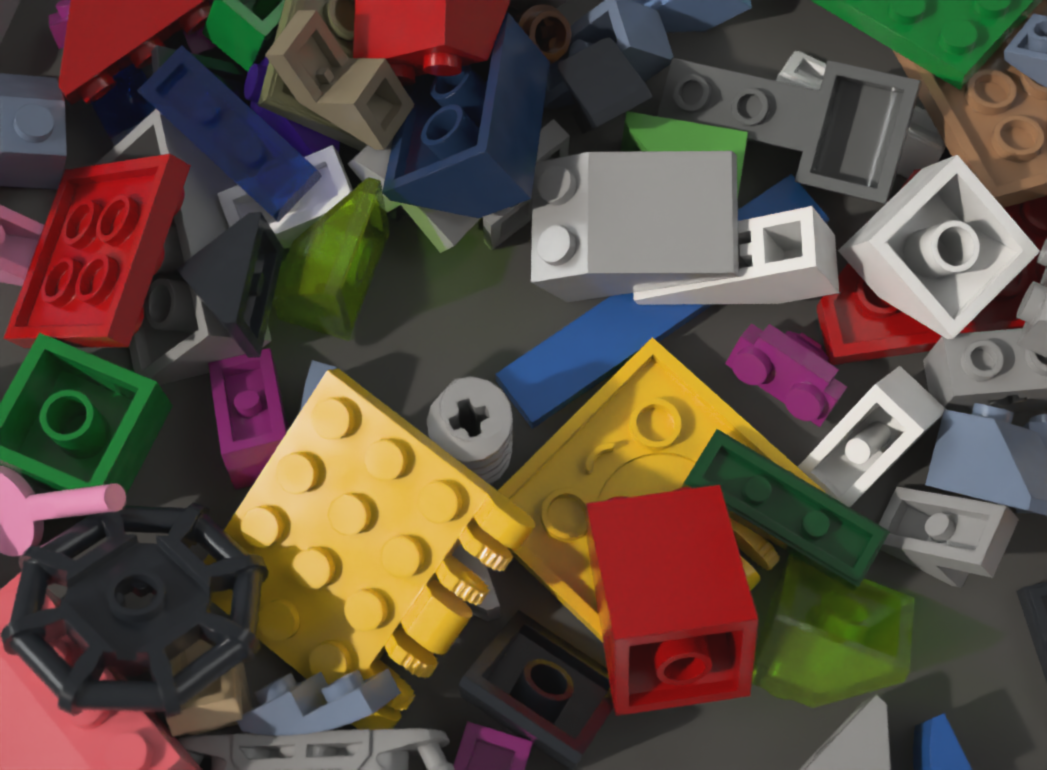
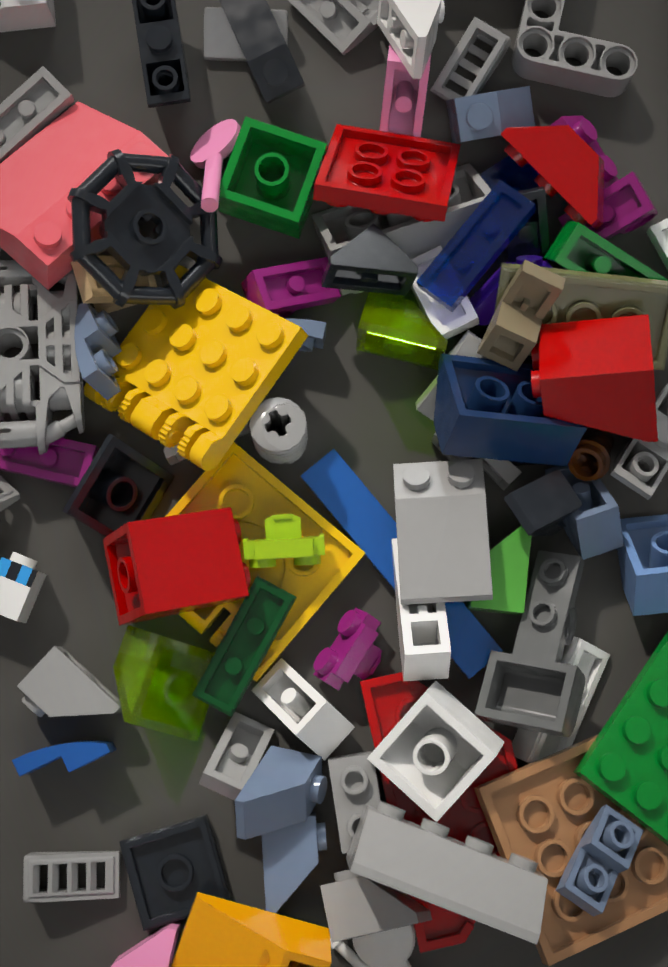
camera: 85 degrees right, 10 degrees up
(638, 437) = (283, 541): none -> lime piece

